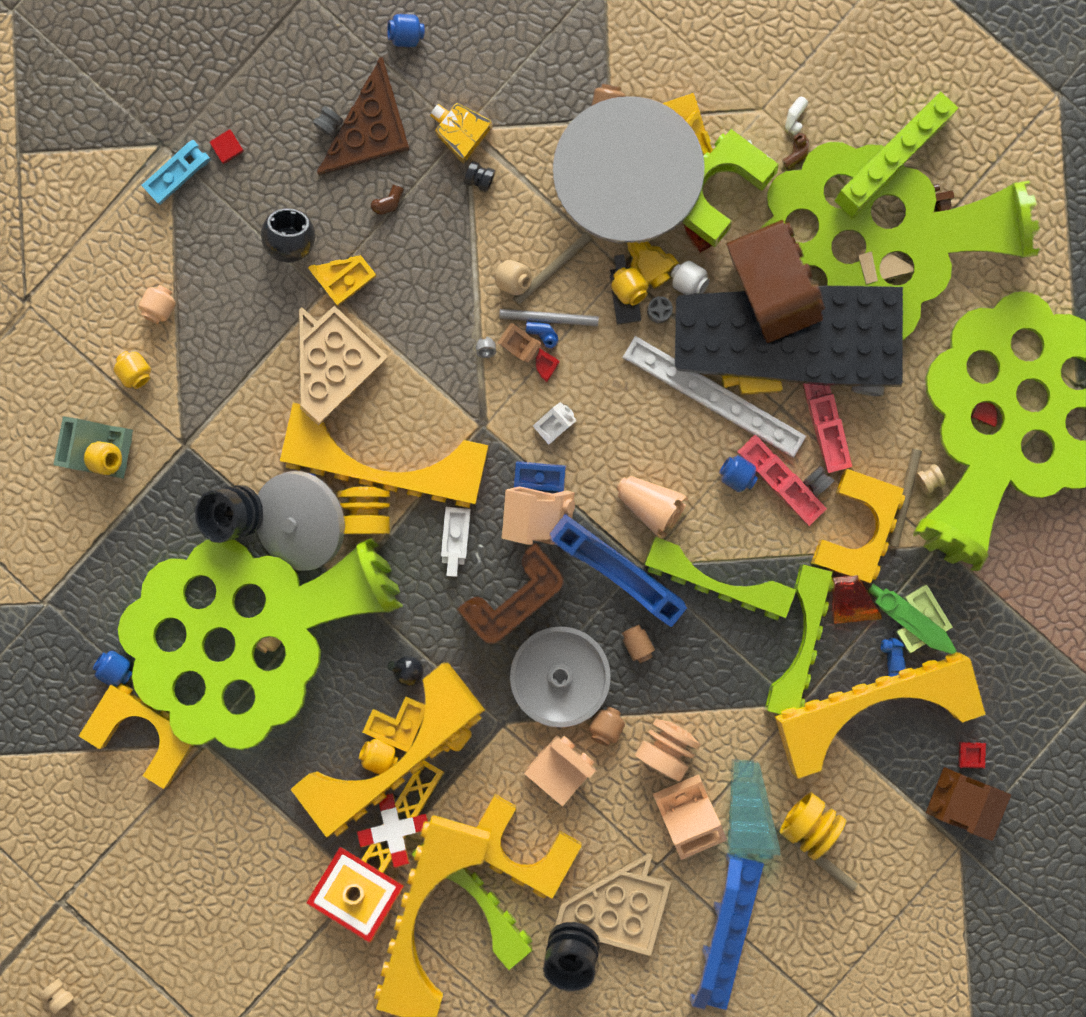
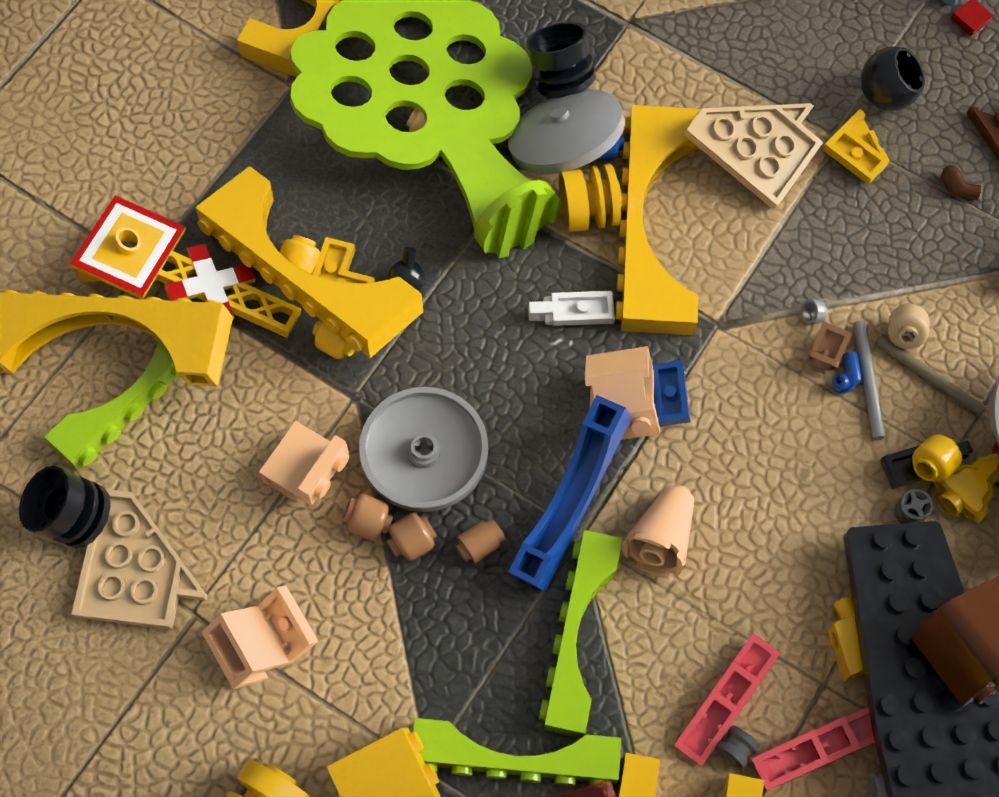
camera: 80 degrees right, 20 degrees down
(495, 624) = (515, 388): reddish brown windscreen -> none
(543, 875) = (168, 469): yellow arch -> none
(546, 364) = (809, 384): red tile -> none
(555, 422) = (741, 402): white bracket -> none
(628, 695) = (411, 537): none -> medium nougat head
(668, 749) = (351, 594): light nougat wheel -> none
(689, 278) = (965, 537): white head -> none
(715, 397) = (815, 601): white tile -> none
(729, 933) = (108, 721): blue plate -> none
(738, 473) = (725, 636): blue head -> none
(750, 816) = (272, 719): clear light blue slope -> none

